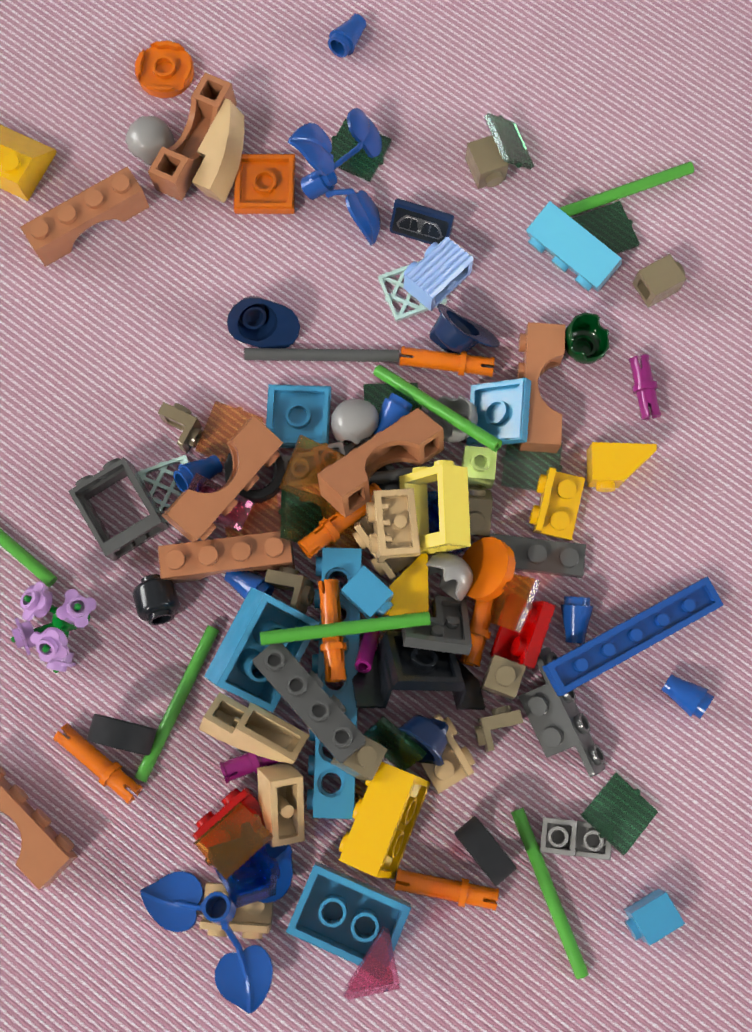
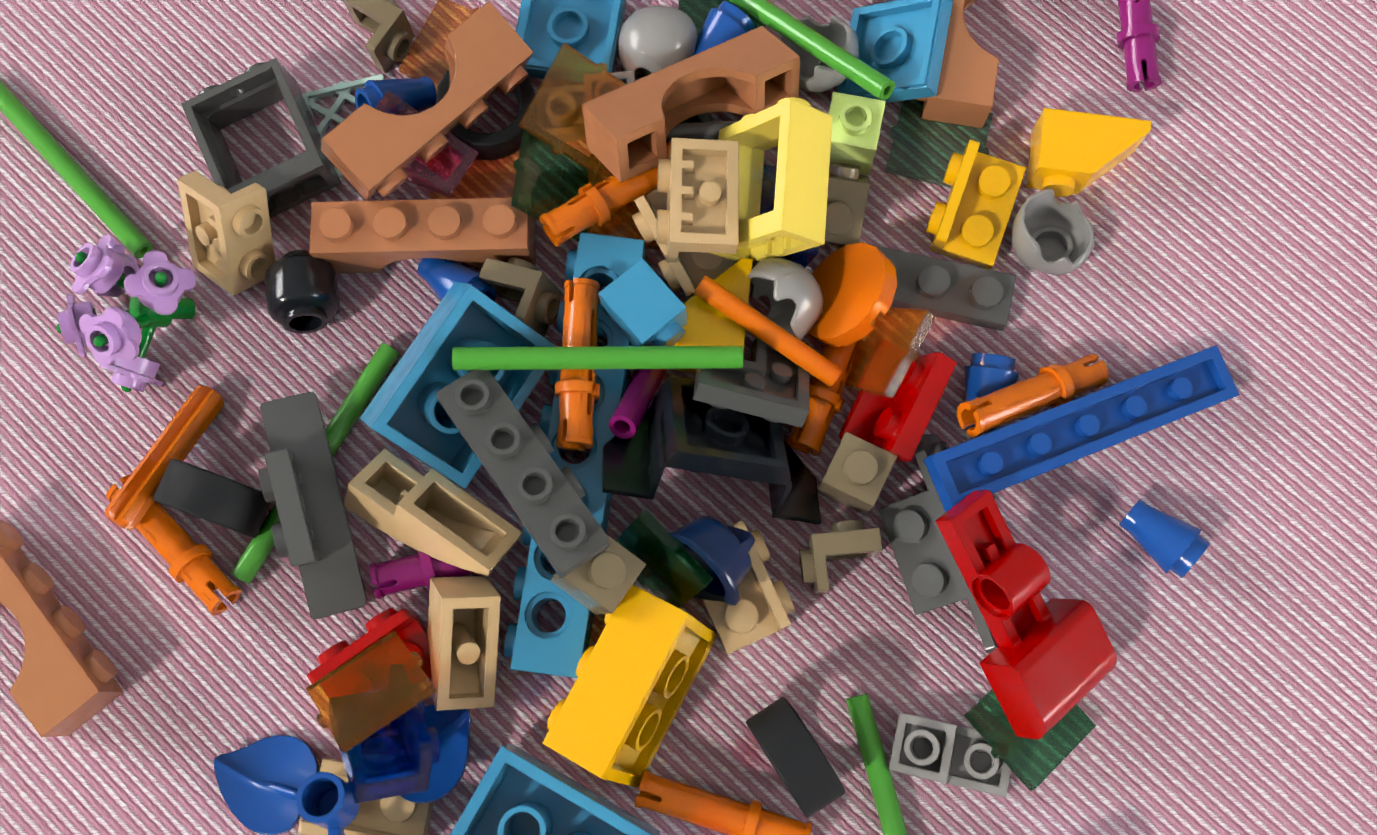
camera: 10 degrees right, 0 degrees up
(87, 708) = (174, 443): none -> orange axle
(107, 571) = (227, 231): none -> tan bracket
(183, 738) = (309, 505): none -> dark grey bracket
(442, 598) = (768, 331): none -> orange bar
(604, 518) = (1051, 234): none -> light grey hair
(611, 613) = (1049, 388): none -> orange pin
(624, 771) = (1044, 651): none -> red plate

